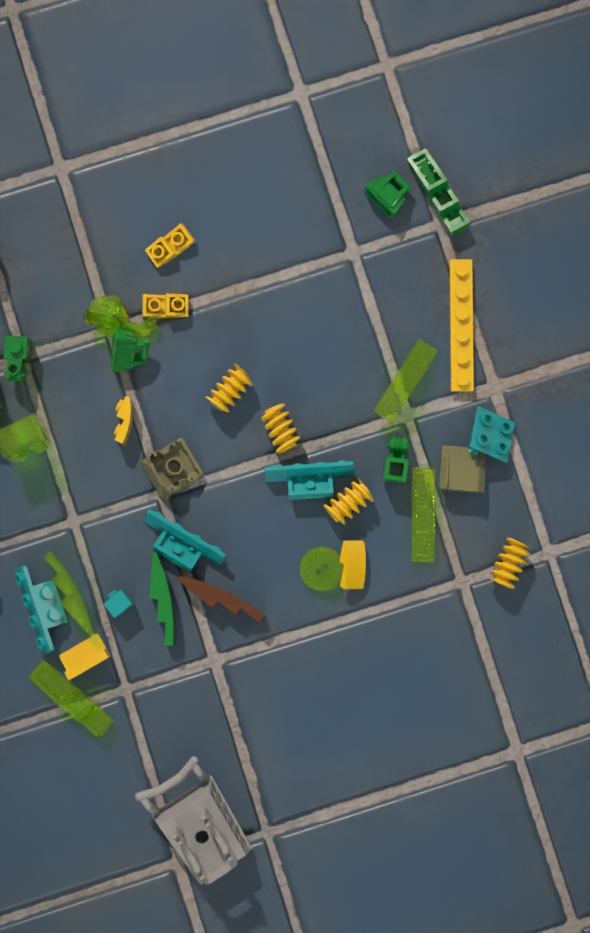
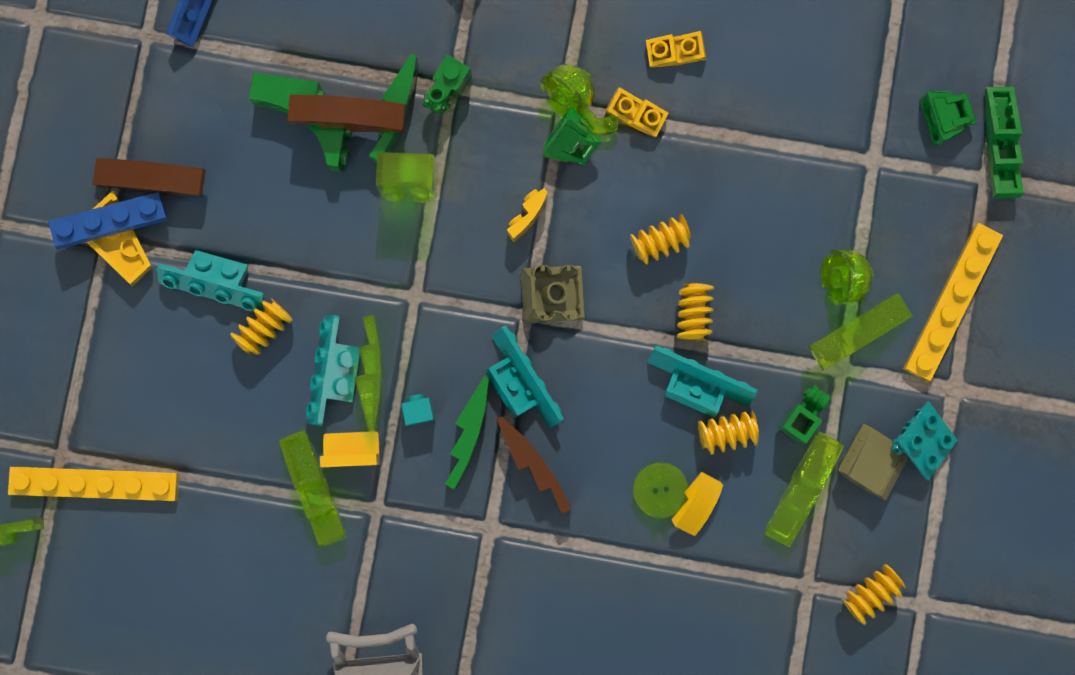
camera: 25 degrees right, 0 degrees up
(375, 346) = (846, 276): none -> clear neon green cylinder

